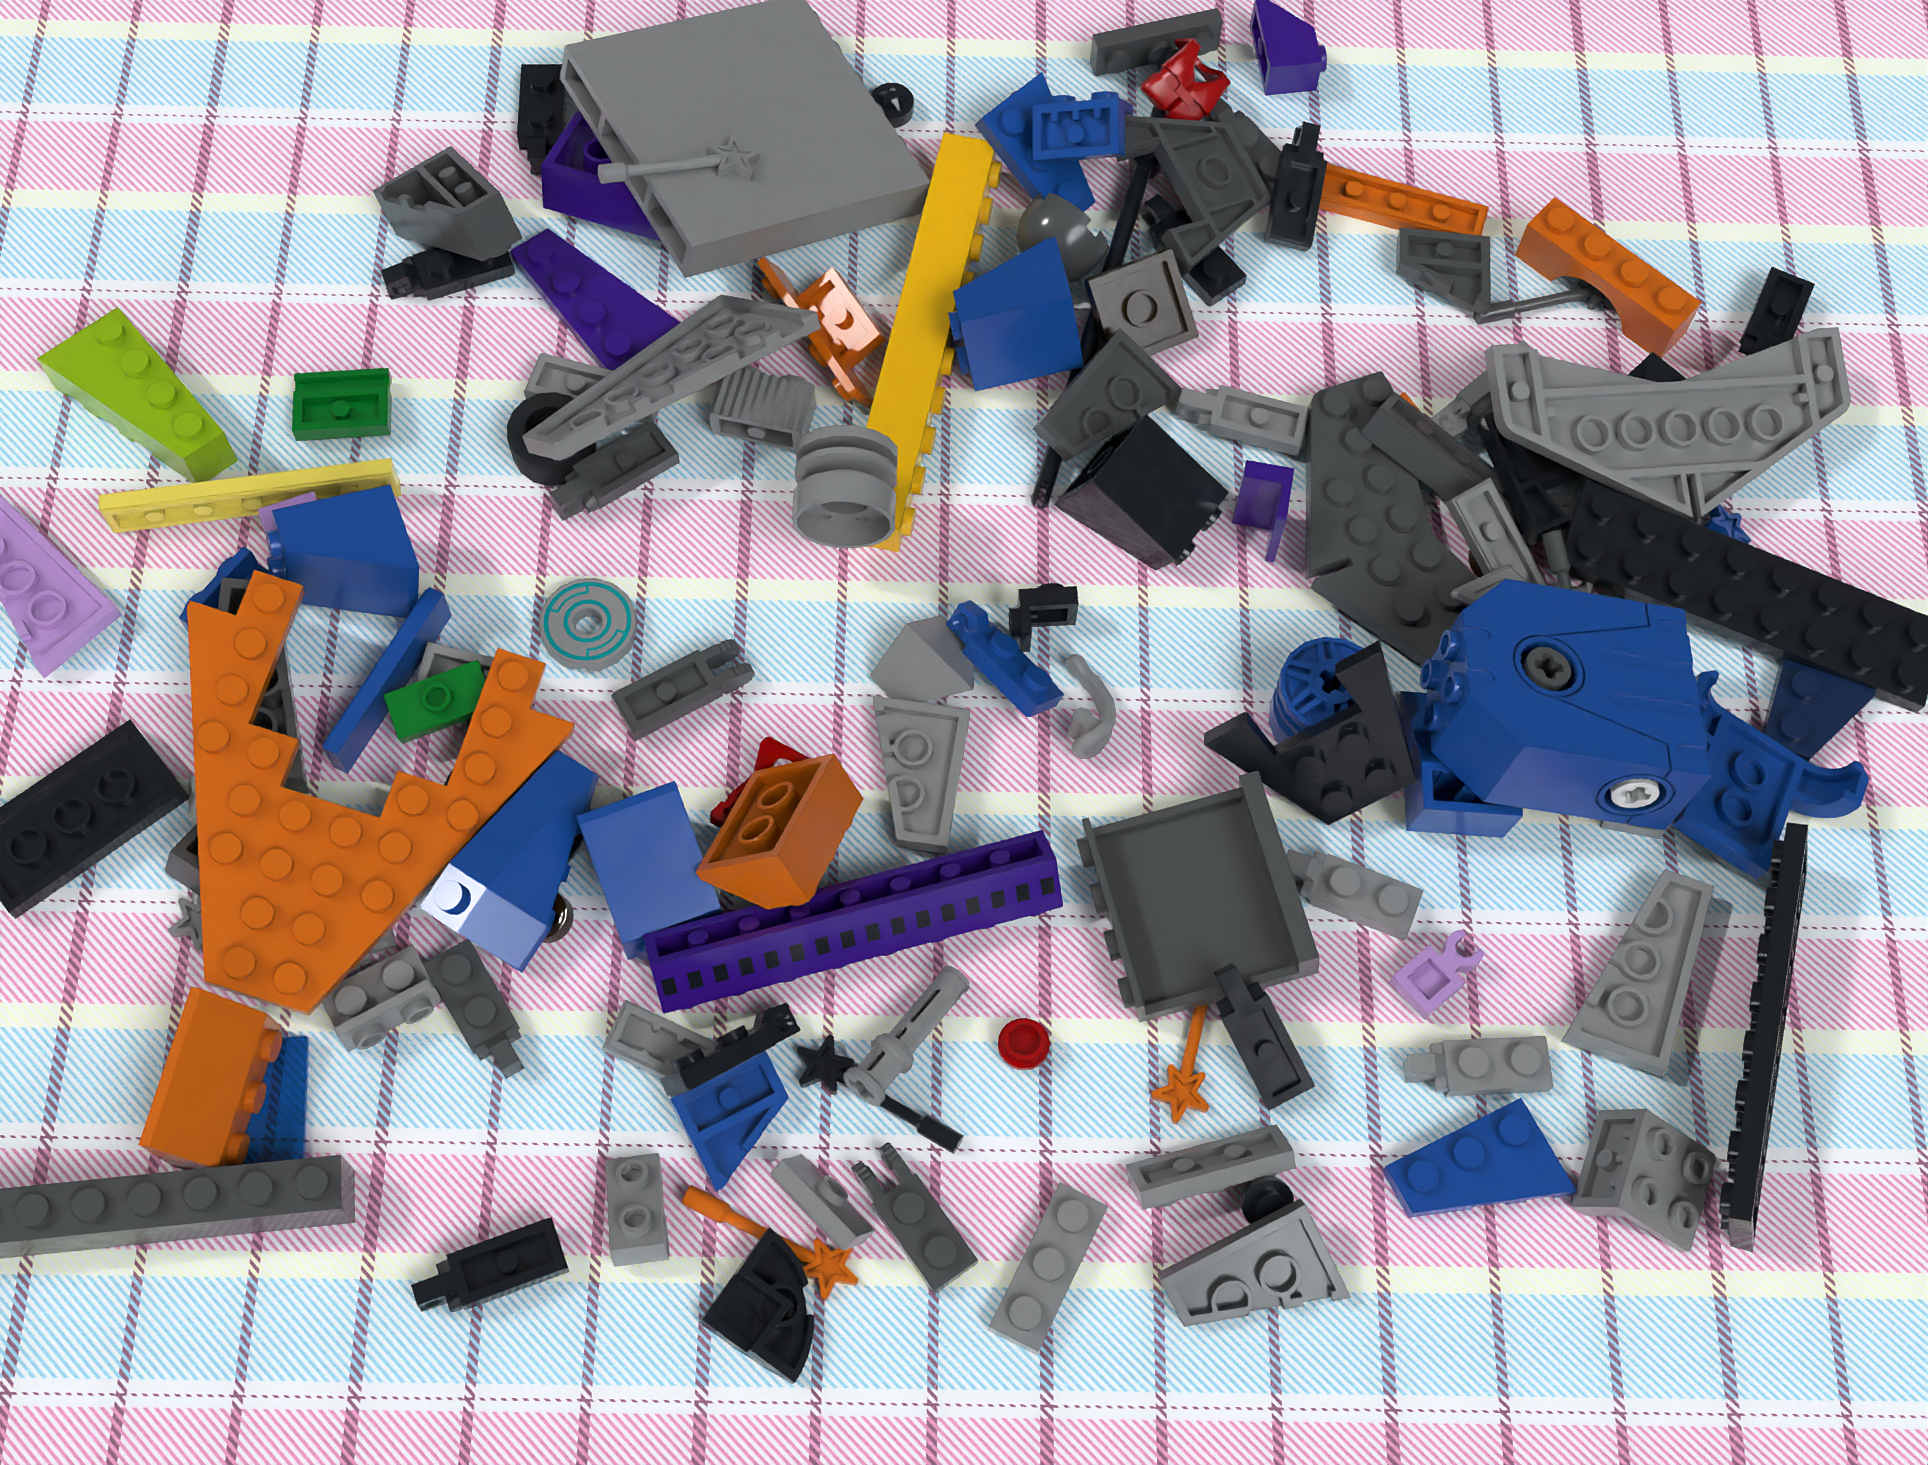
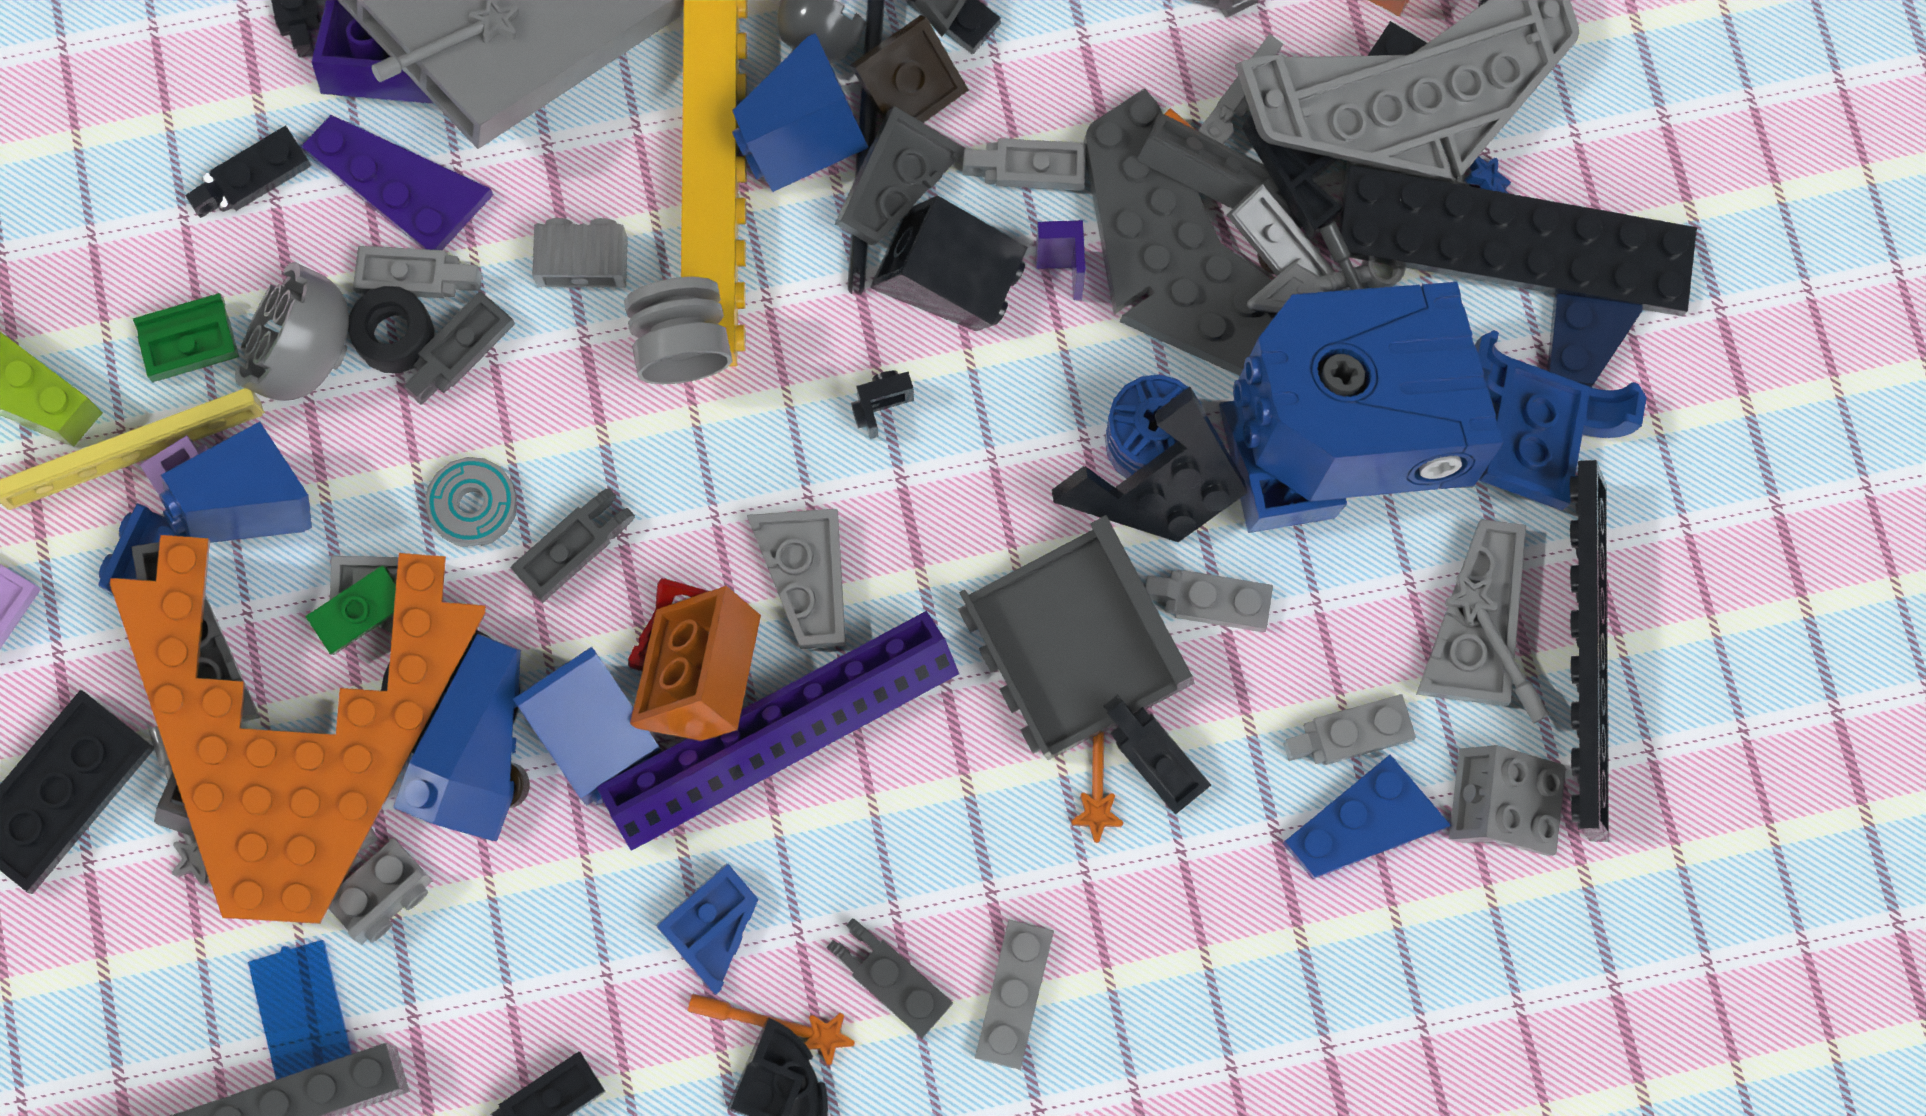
camera: 10 degrees left, 10 degrees up
(211, 1083) = (255, 1005): orange slope -> none
(390, 673) = (303, 598): blue tile -> none
(449, 208) = (234, 121): dark grey wedge -> none
(454, 423) = (309, 341): none -> light grey cylinder
(476, 1005) = (464, 878): dark grey hinge -> none
(636, 1210) = (650, 1027): light grey plate -> none
(651, 1040) = (635, 879): light grey plate -> none
(683, 361) = (503, 223): light grey wing -> none
(735, 1048) = (702, 869): black hinge -> none
(823, 1201) = (809, 983): light grey plate -> none
(829, 1068) = (788, 863): black piece -> none
(846, 327) = (623, 153): orange bracket -> none
(894, 1050) = (840, 838): light grey pin -> none
(924, 663) = (789, 471): light grey slope -> none
(1003, 662) = (857, 455): blue hinge -> none
(1023, 1044) = (951, 804): red plate -> none
(1087, 731) = (942, 501): light grey piece -> none
(1210, 1167) = (1135, 876): light grey plate -> none
(1256, 1268) = (1194, 953): wing -> none
(1264, 1197) = (1188, 896): black plate -> none
(1433, 978) = (1294, 663): lavender plate -> none
(1646, 955) = (1476, 603): none -> light grey piece

